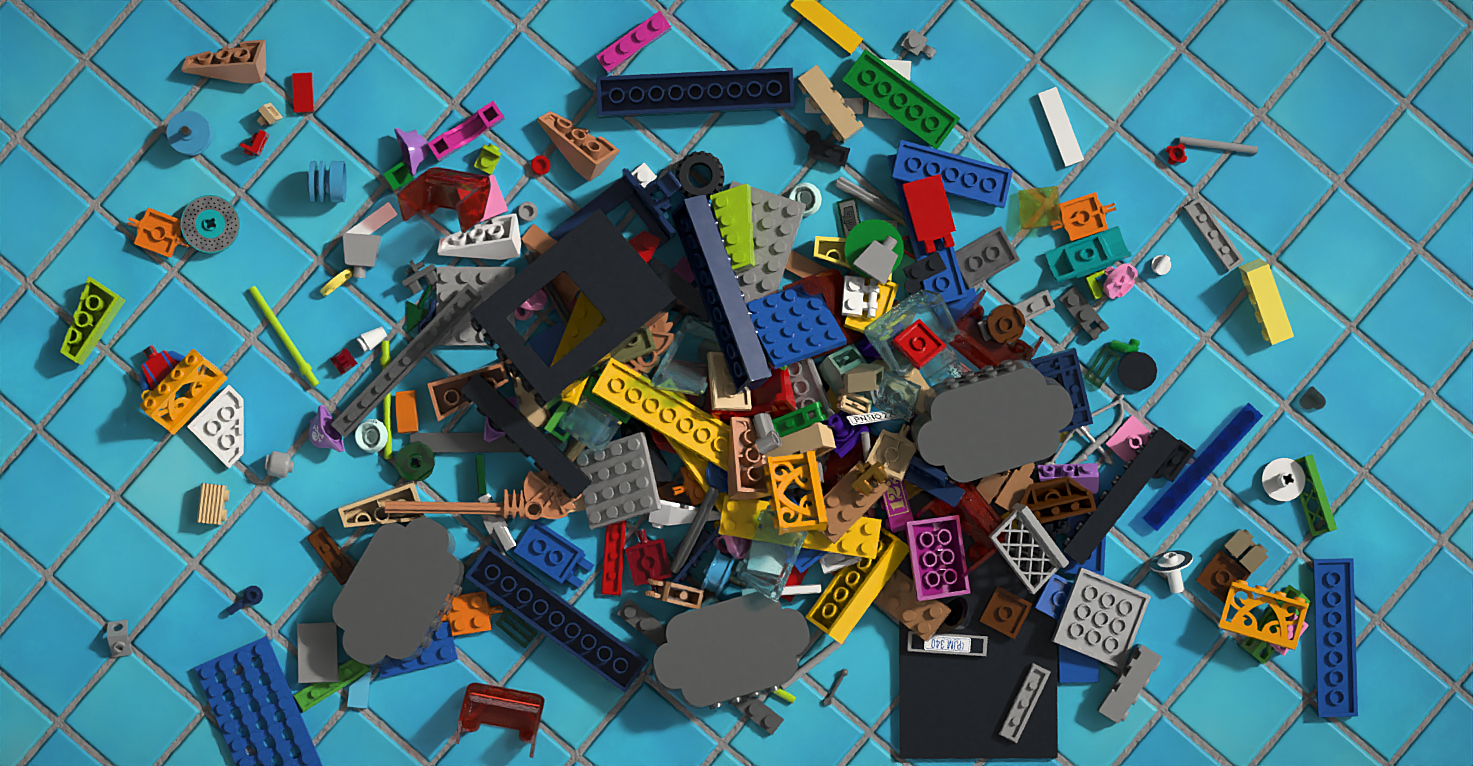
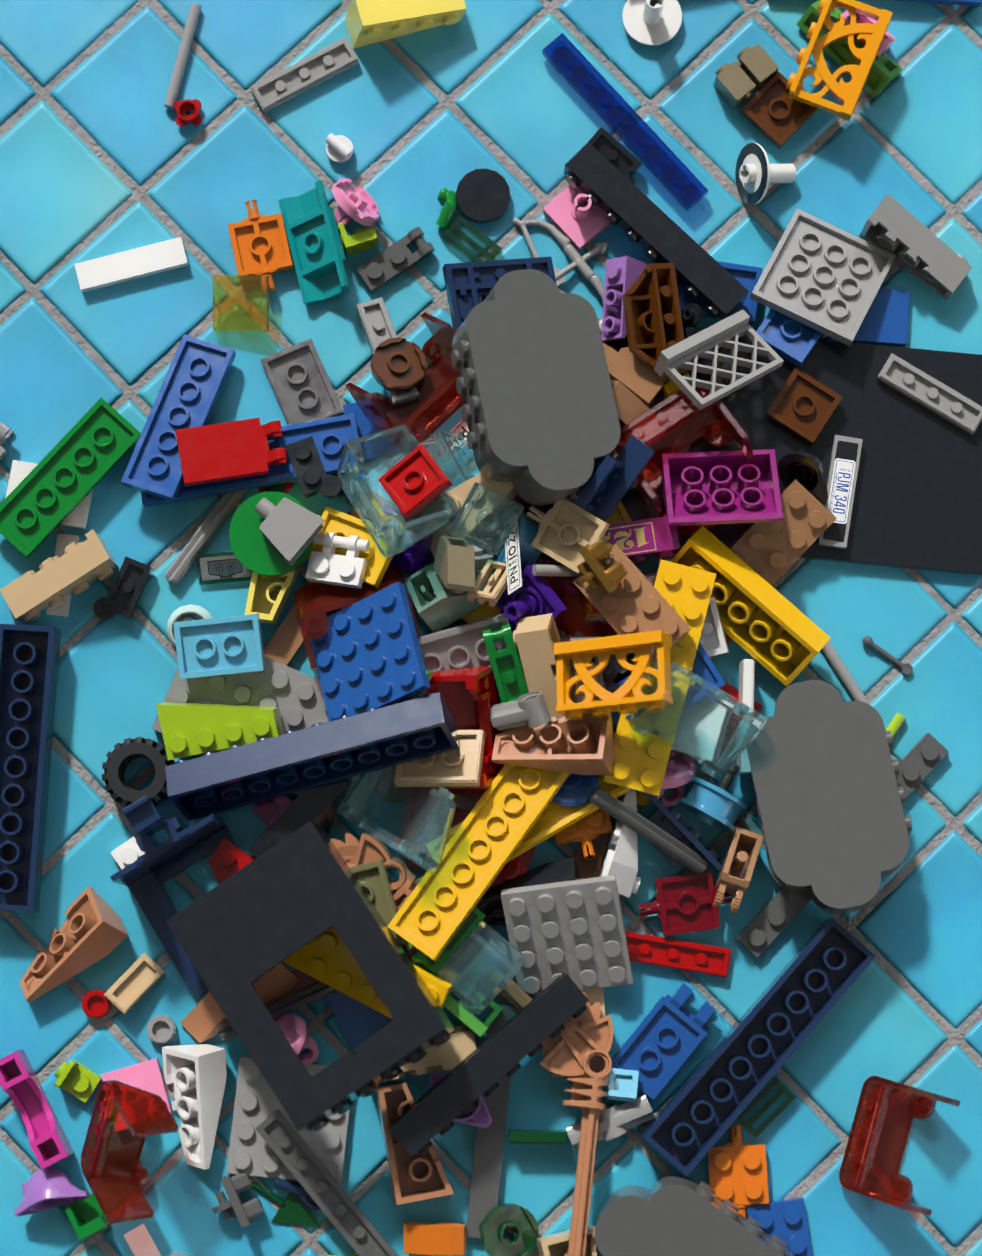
camera: 85 degrees left, 5 degrees down
(521, 529) = (623, 1085): none -> medium azure tile
(556, 189) = (134, 983): none -> tan tile
(791, 221) = (219, 646): none -> medium azure plate

